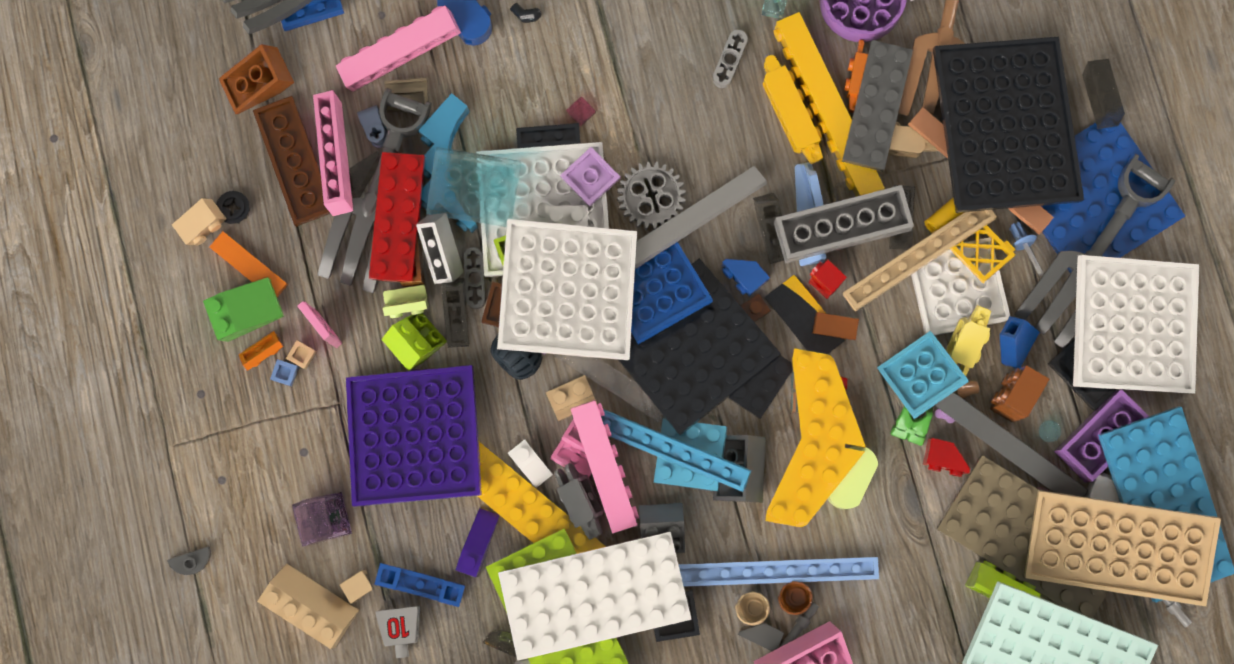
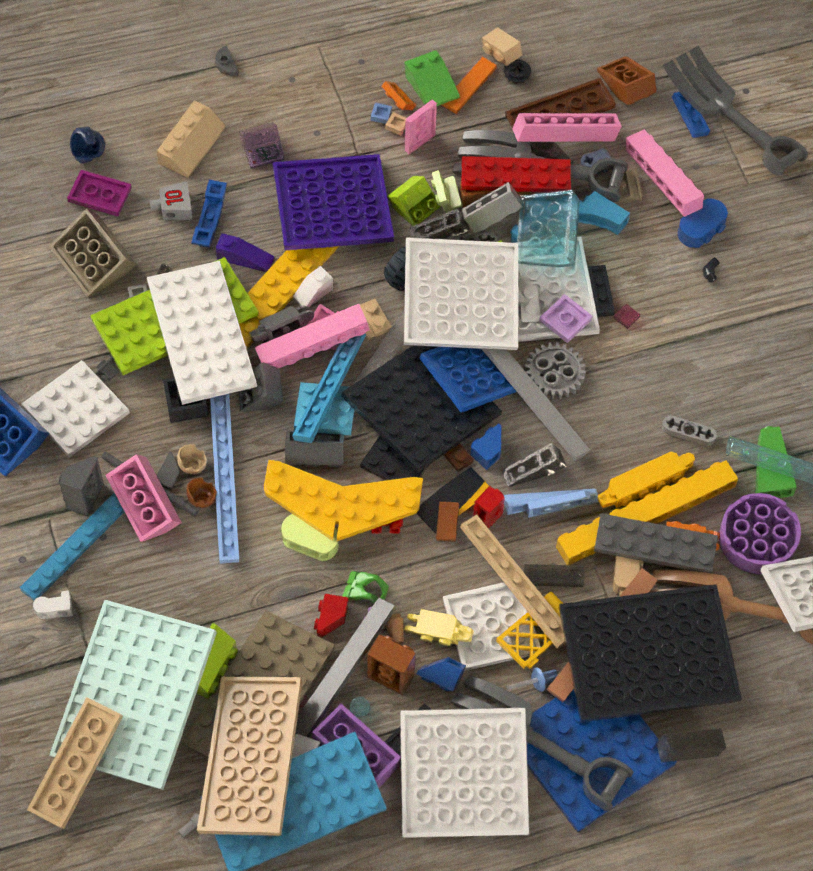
camera: 80 degrees right, 20 degrees down
(356, 586) = (206, 168): tan panel -> none
(843, 224) = (539, 511): light grey brick -> none
(922, 374) = (405, 586): medium azure plate -> none

